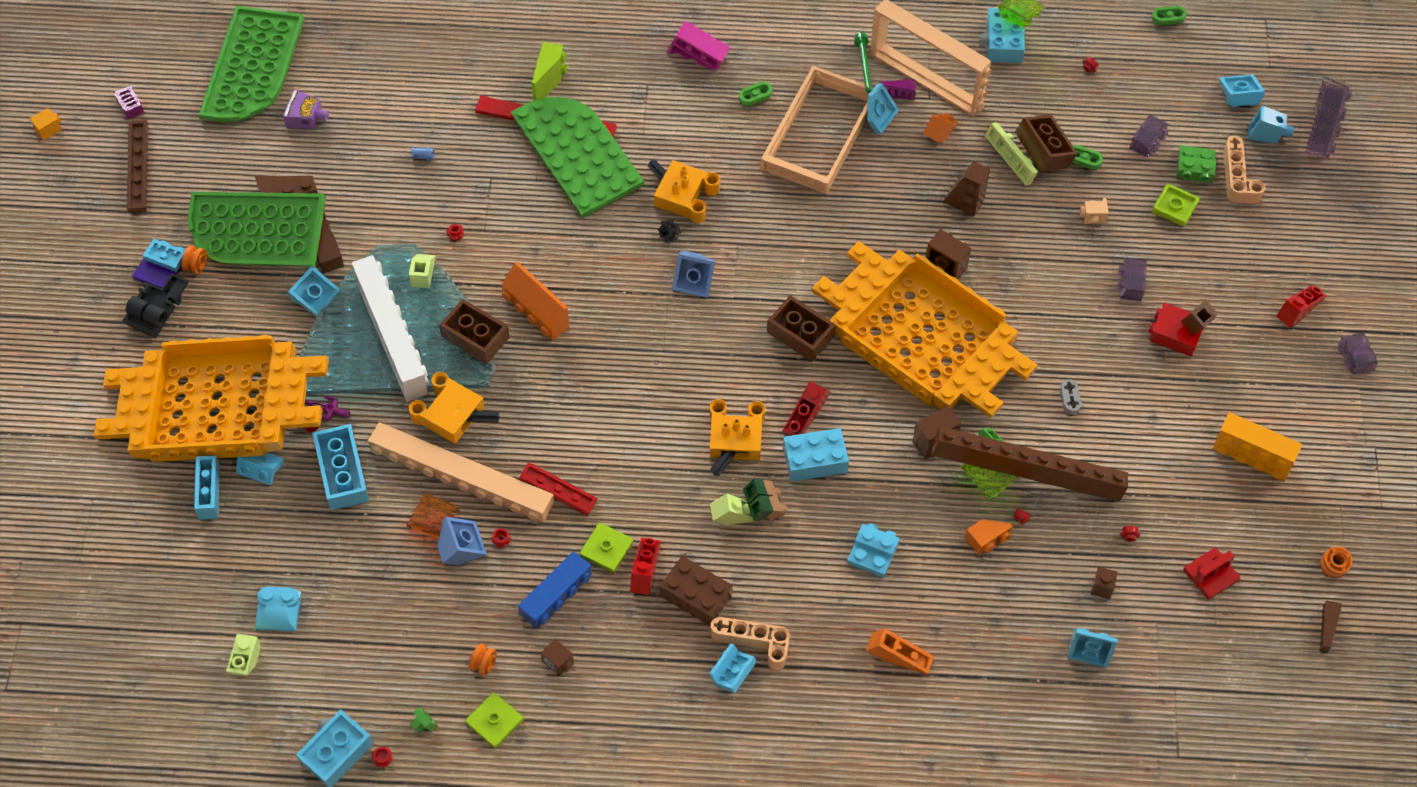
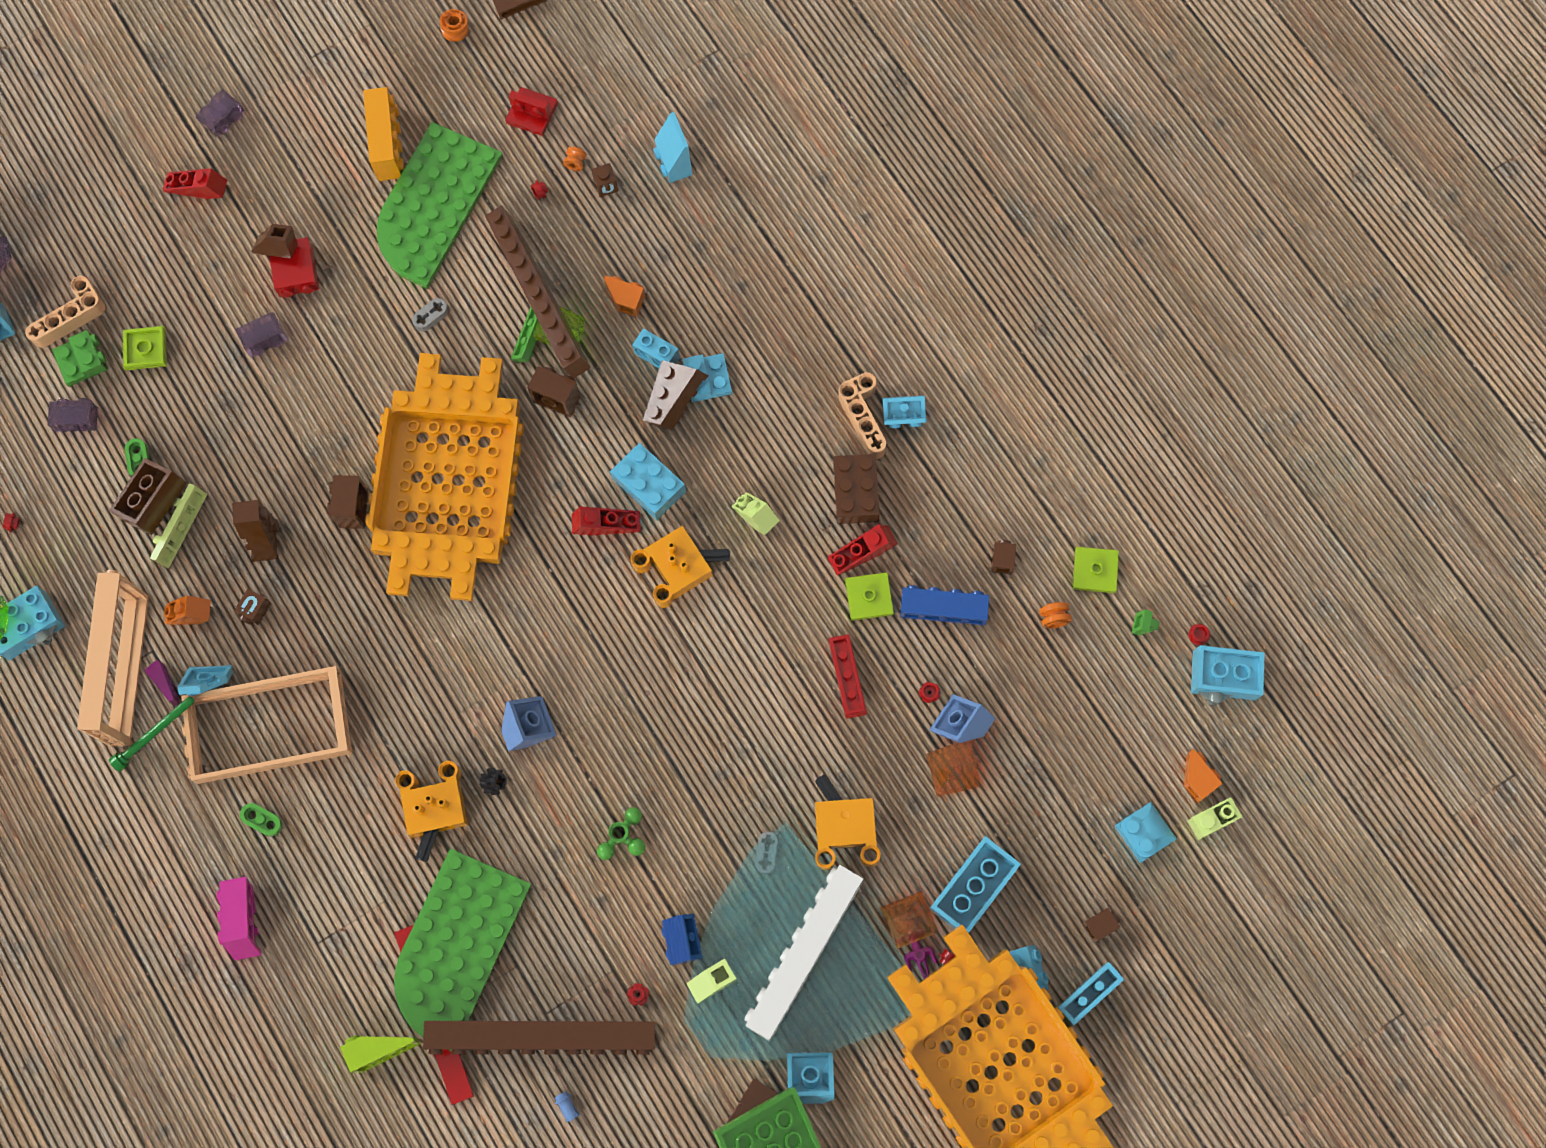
camera: 120 degrees left, 15 degrees up
(243, 531) = (1102, 924): none -> reddish brown brick
(280, 672) = (1198, 777): none -> orange slope
(360, 411) = (909, 919): none -> clear orange slope
(461, 472) = (895, 778): light nougat brick -> none
(466, 272) = (681, 939): none -> blue brick
(474, 331) = (747, 870): reddish brown brick -> none
(476, 159) = (539, 1036): none -> reddish brown brick
(535, 302) = (669, 844): orange slope -> none
(565, 268) = (635, 846): none -> bright green piece
(764, 500) = (728, 489): dark green hips -> none
(801, 328) = (522, 580): reddish brown brick -> none
(873, 507) = (671, 394): none -> wedge
(899, 651) = (788, 296): orange slope -> none
(913, 164) = (252, 607): none -> reddish brown brick
(921, 526) = (654, 349): none -> medium azure brick
(1021, 514) = (583, 282): red hinge -> none
(1094, 212) = (201, 411): light nougat brick -> none
(1141, 574) = (574, 158): none -> orange wheel
(1173, 456) = (433, 202): none -> bright green plate

